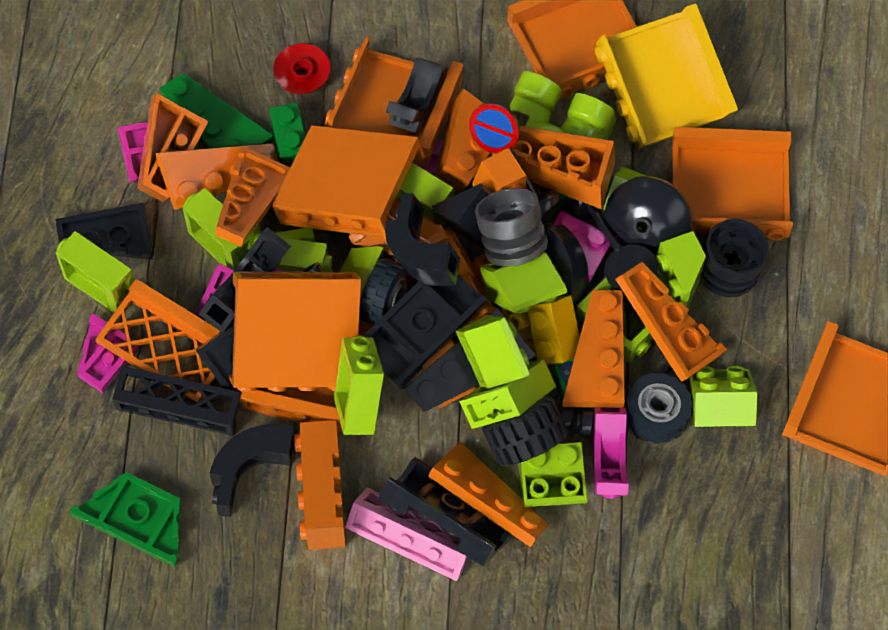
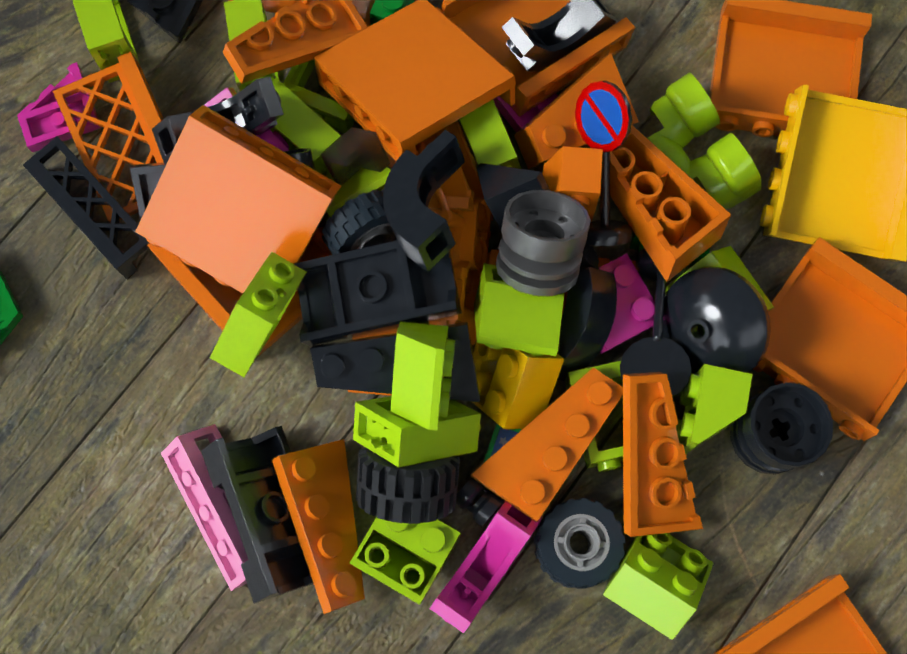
camera: 35 degrees right, 10 degrees up
(247, 449) = (108, 306): black arch -> none
(321, 485) = (161, 394): orange wedge -> none
(343, 247) = (355, 151): none -> clear smoke panel

